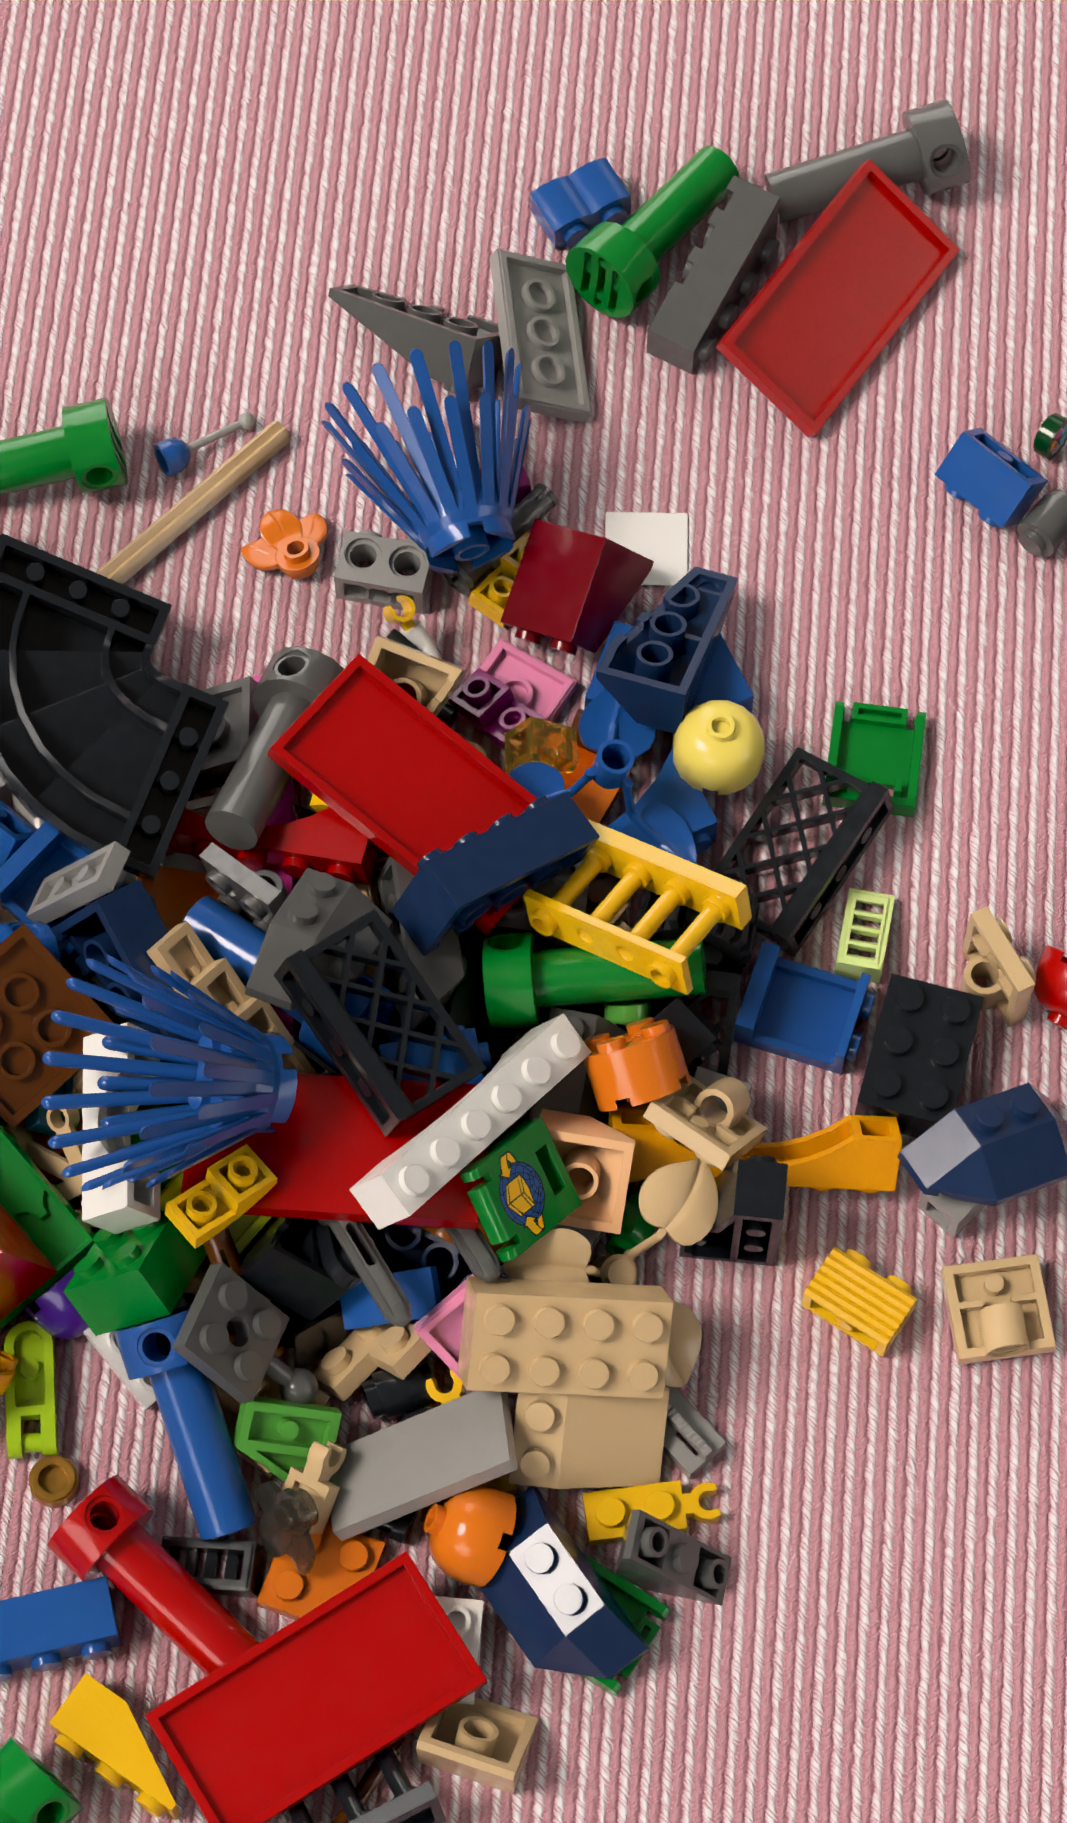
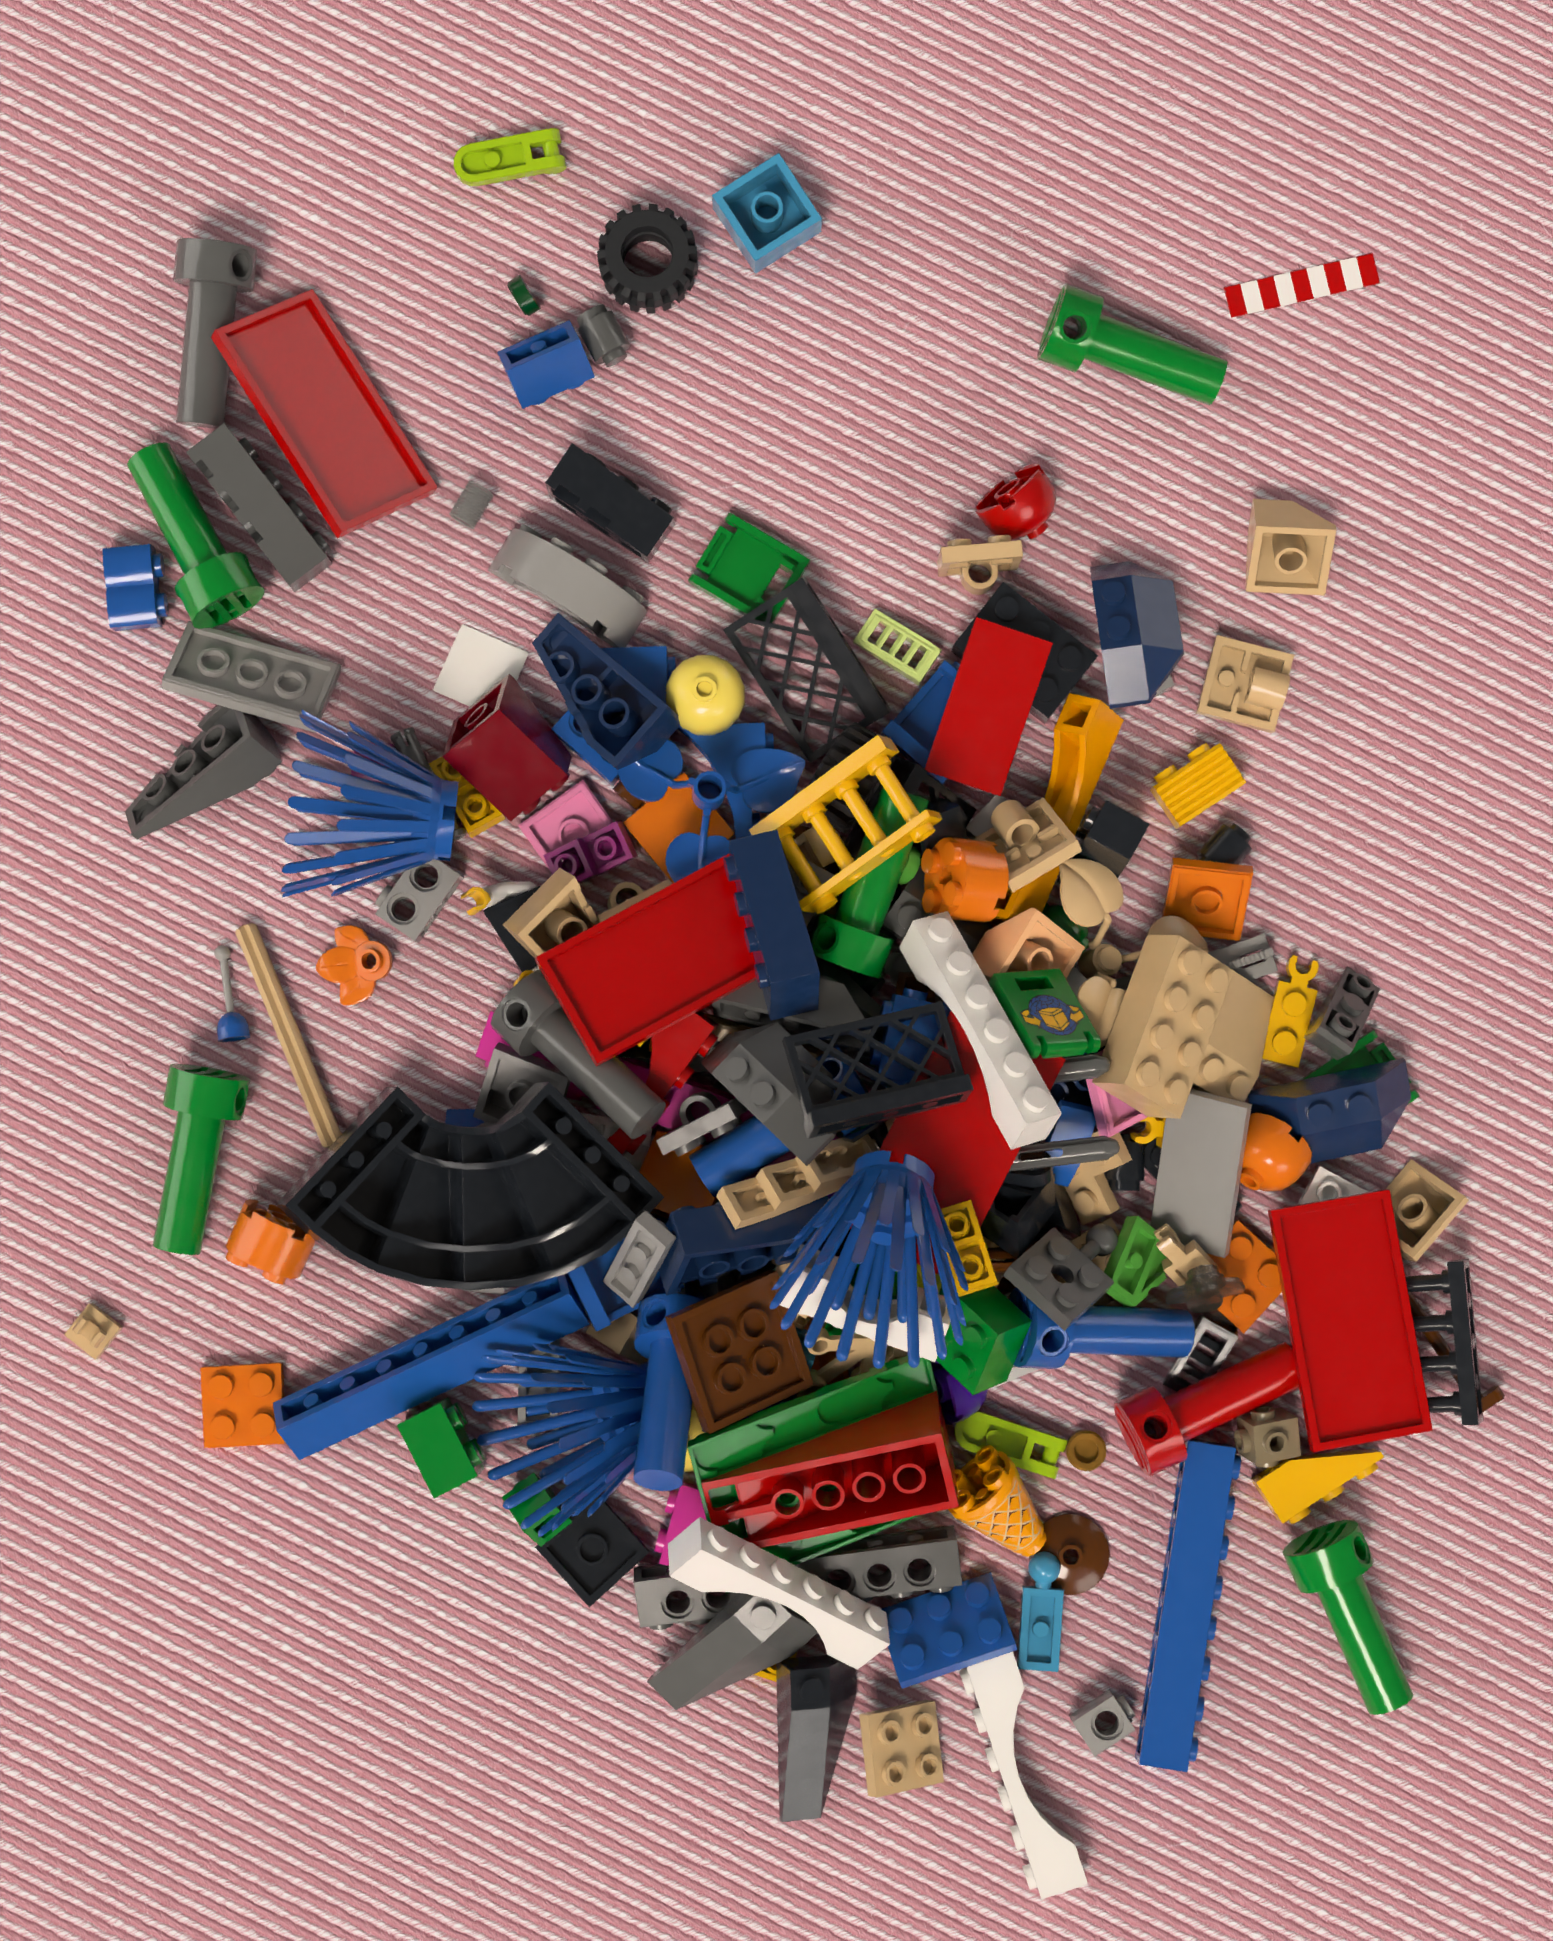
camera: 70 degrees left, 20 degrees up
(132, 1681) = (1267, 1436): none -> dark tan brick
(541, 742) = (649, 838): clear yellow brick -> none
(739, 1358) = (1209, 896): none -> orange plate
(770, 589) = (569, 585): none -> light grey brick
(797, 1358) = (1226, 845): none -> black brick
(813, 470) = (470, 510): none -> light grey piece
(839, 1029) = (988, 706): none -> red tile
(877, 588) = (610, 503): none -> black wedge

